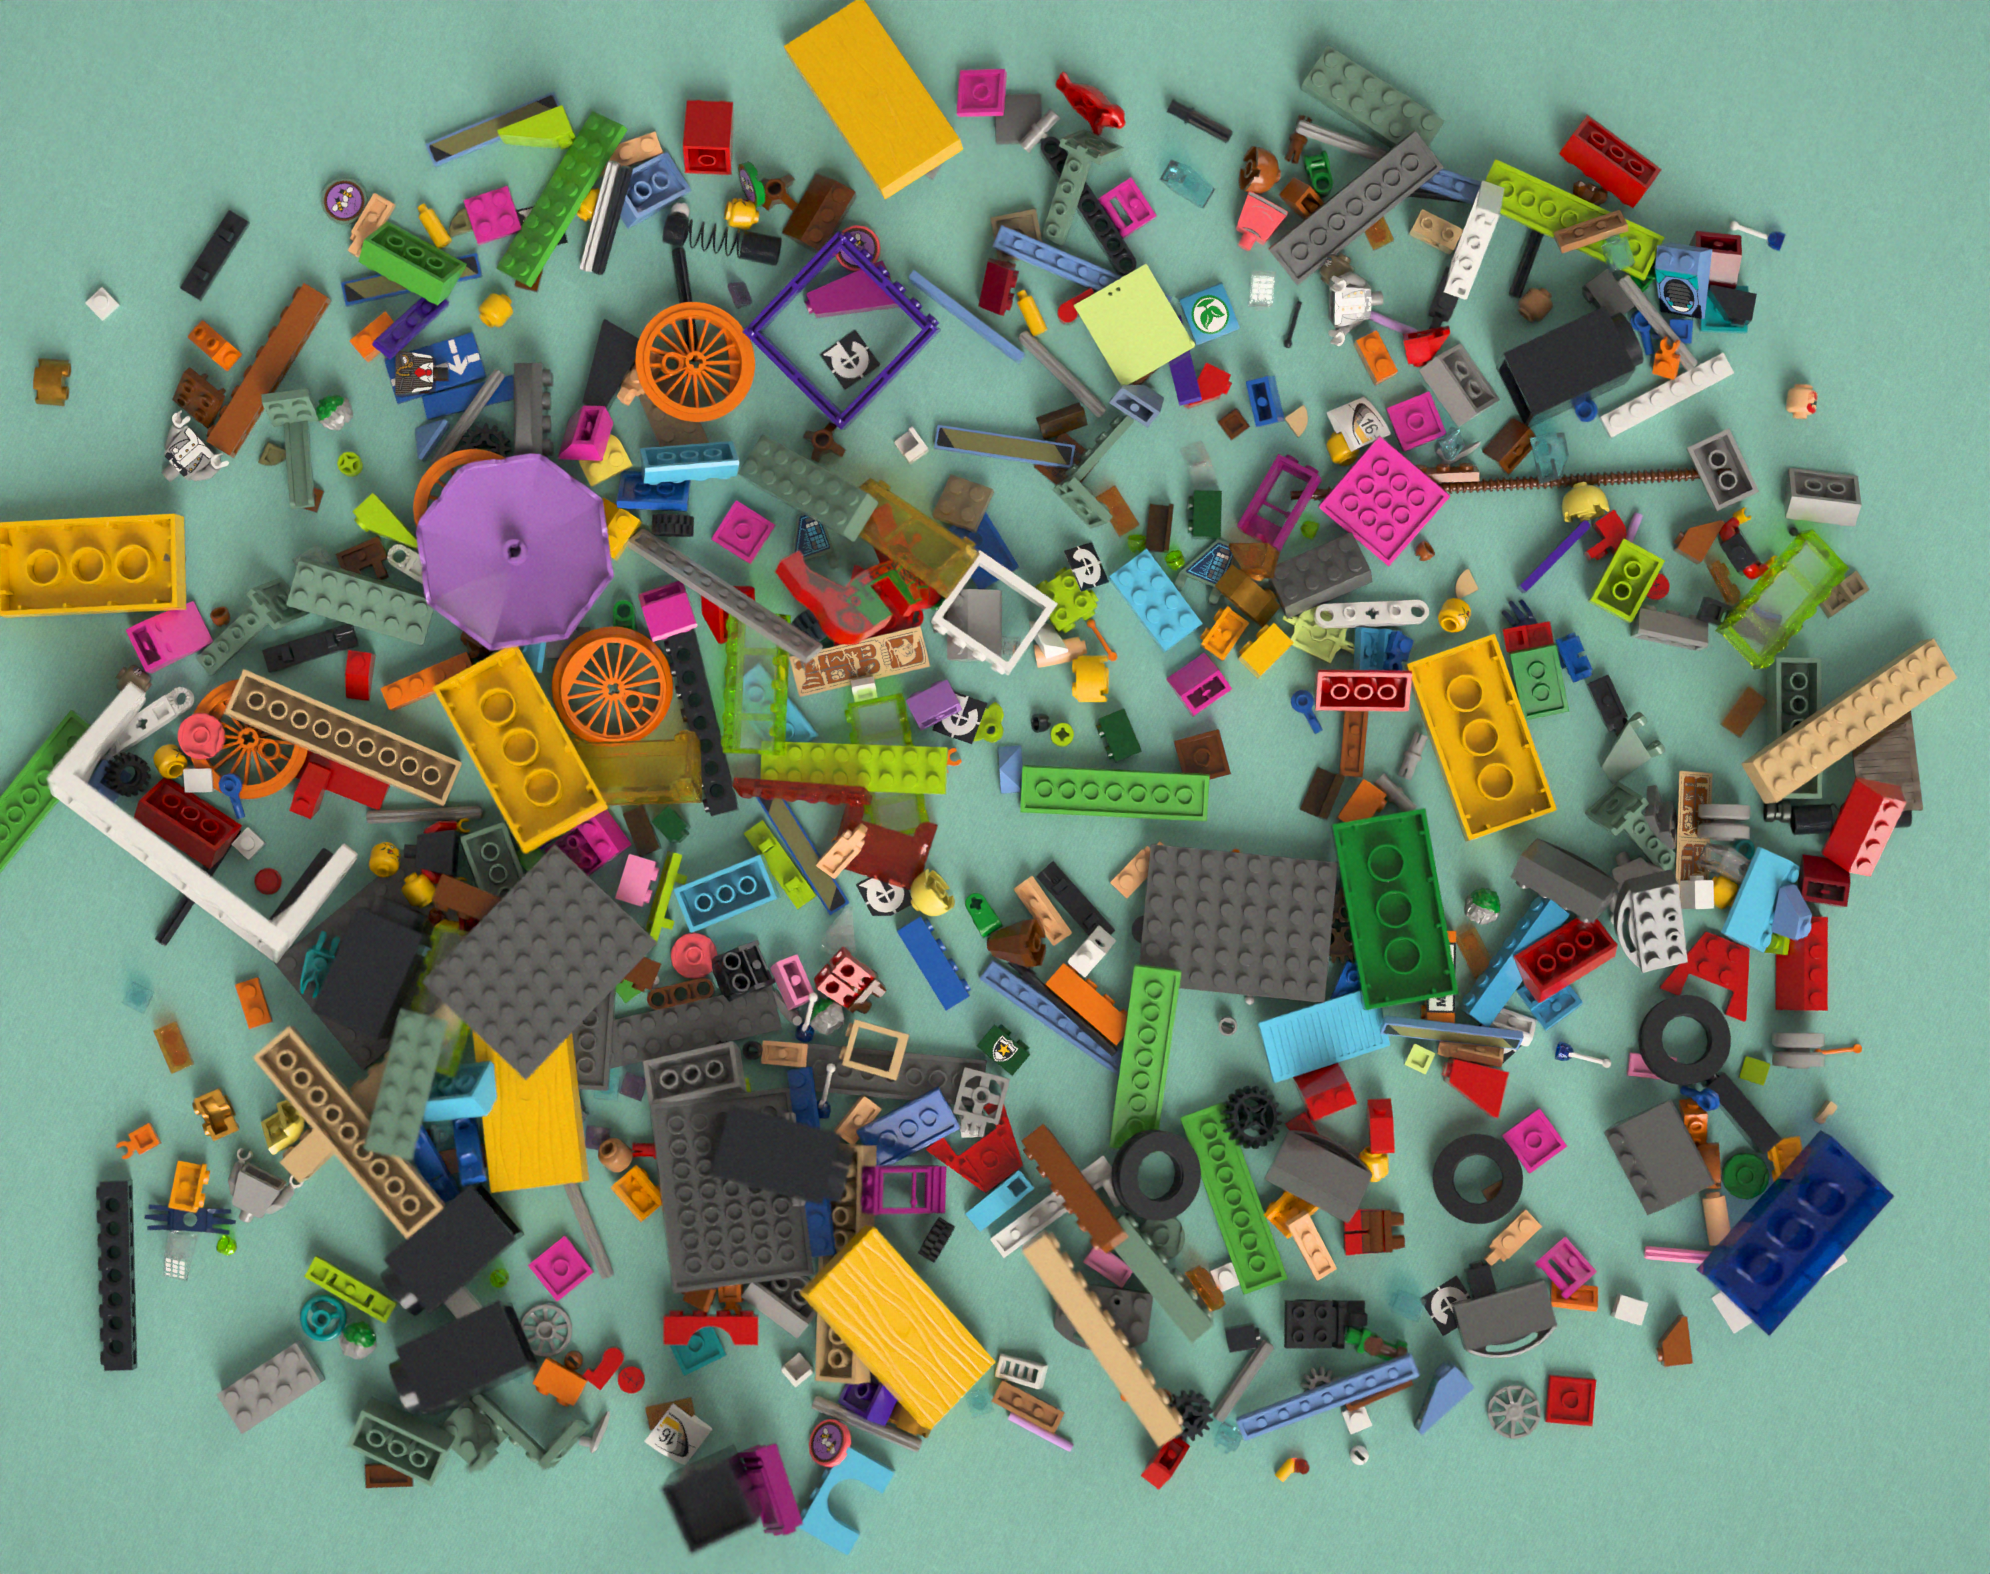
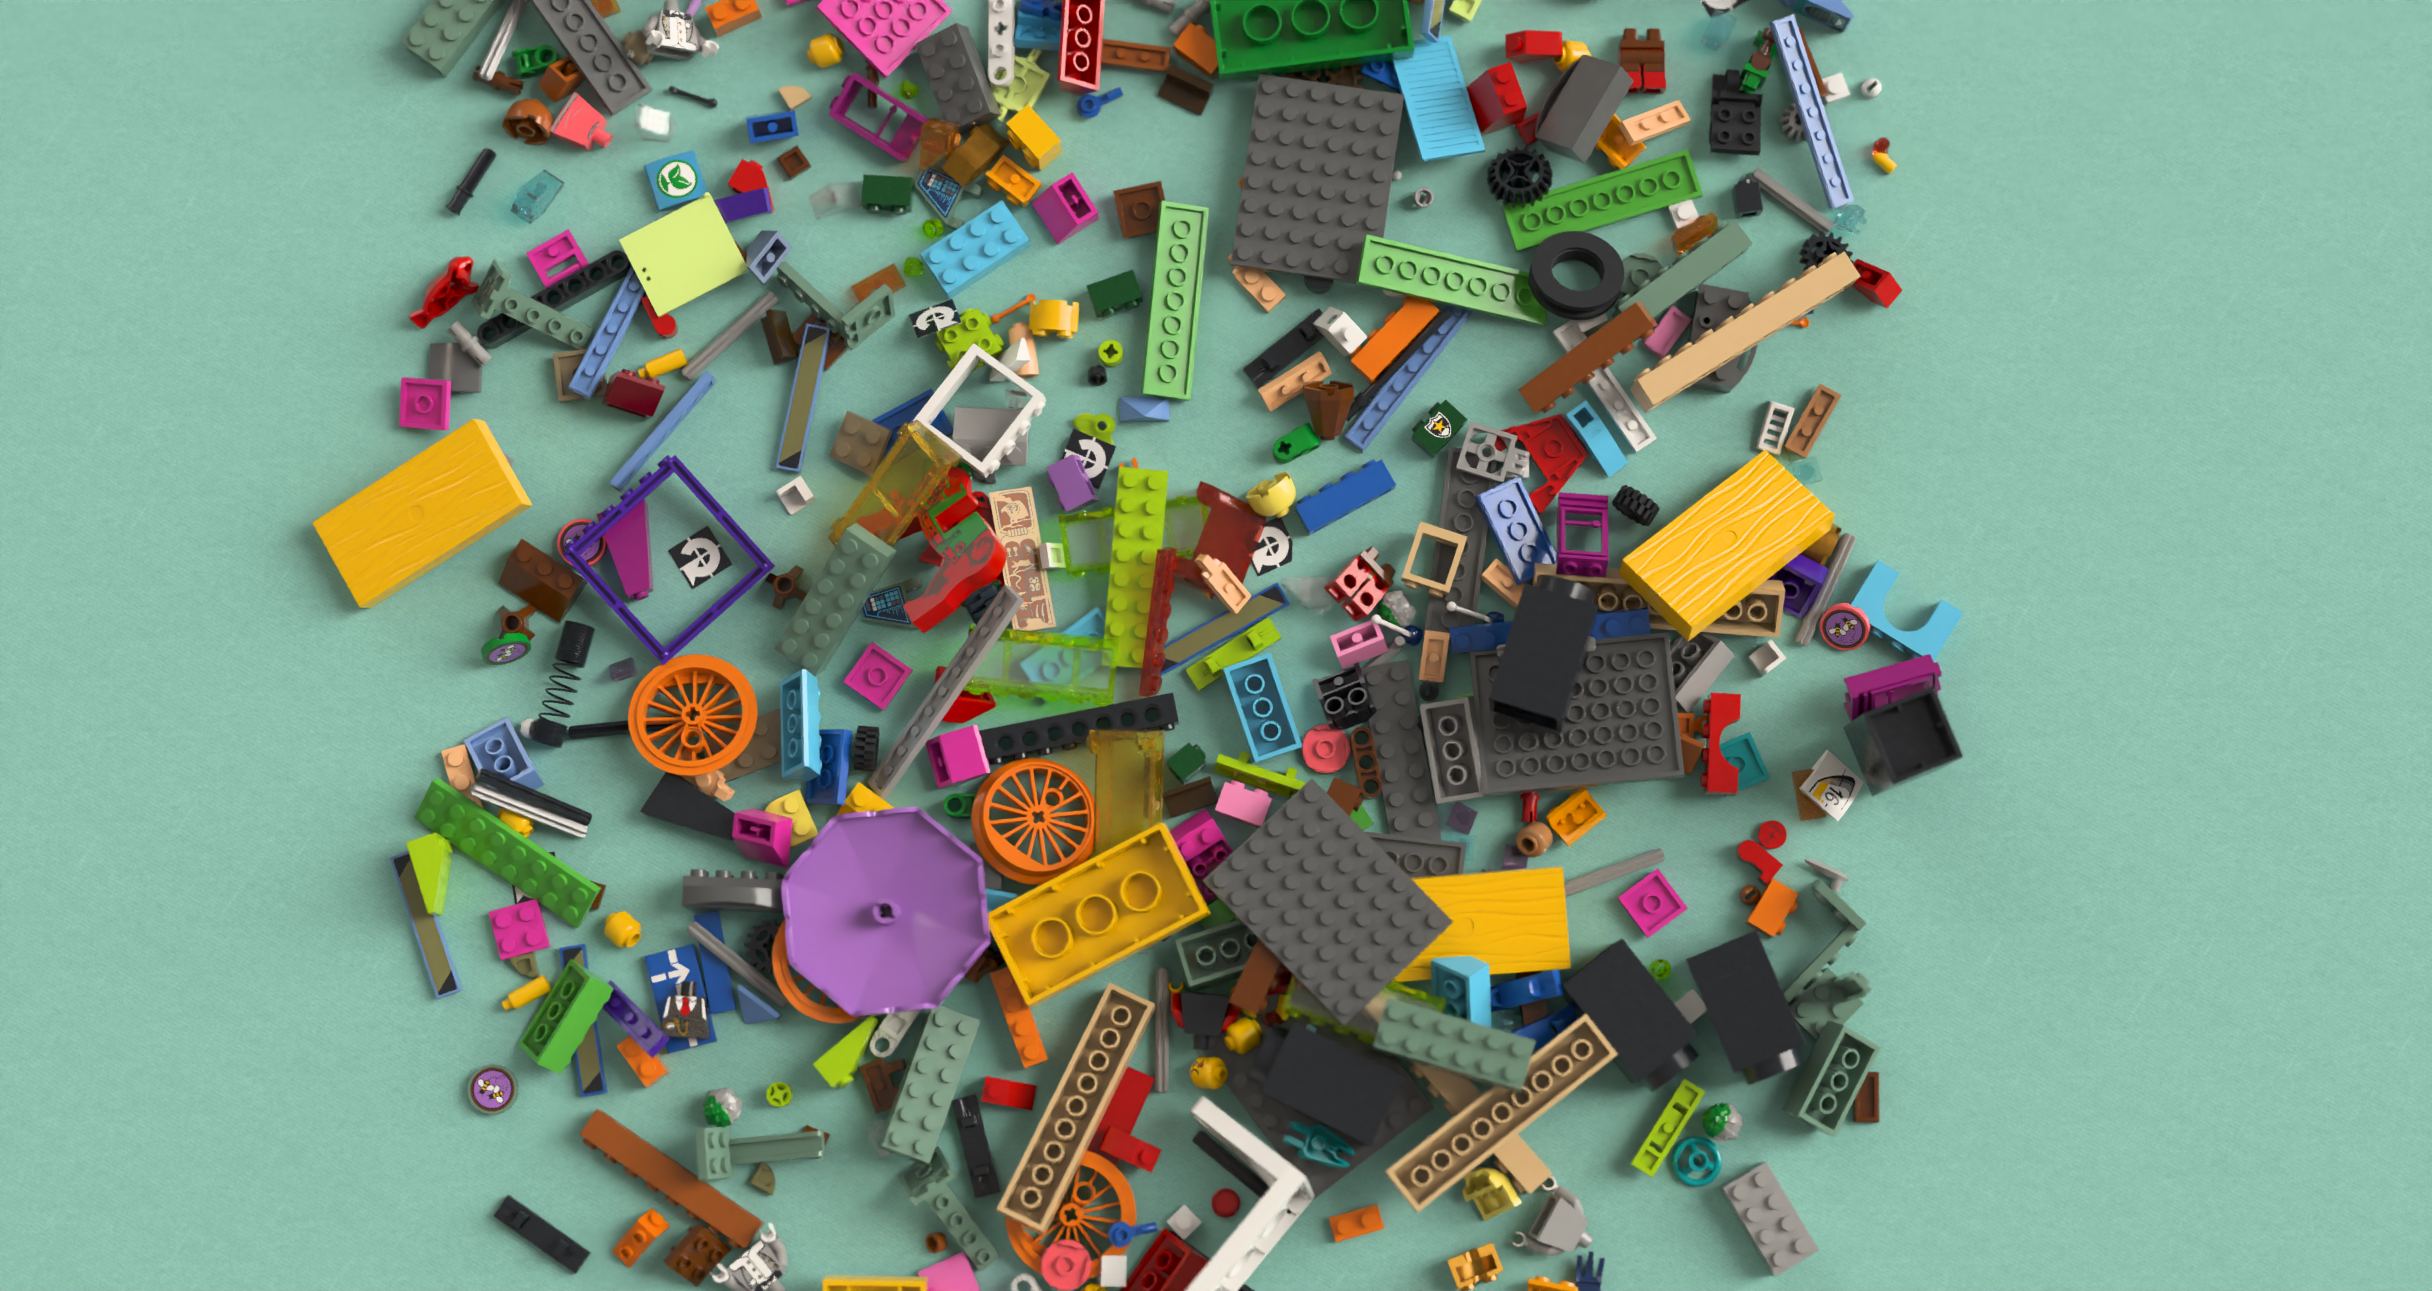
camera: 85 degrees left, 5 degrees down
(226, 1245) = (1616, 1262): clear neon green hinge -> none
(373, 217) = (518, 1062): light nougat hinge -> none
(547, 1330) = (1715, 922): light grey wheel -> none
(708, 137) = (451, 693): red slope -> none
(741, 213) = (536, 663): yellow head -> none
(1054, 1438) = (1838, 410): lavender bar -> none
(1159, 528) = (898, 241): dark brown panel -> none
(1358, 423) = (801, 31): white slope -> none

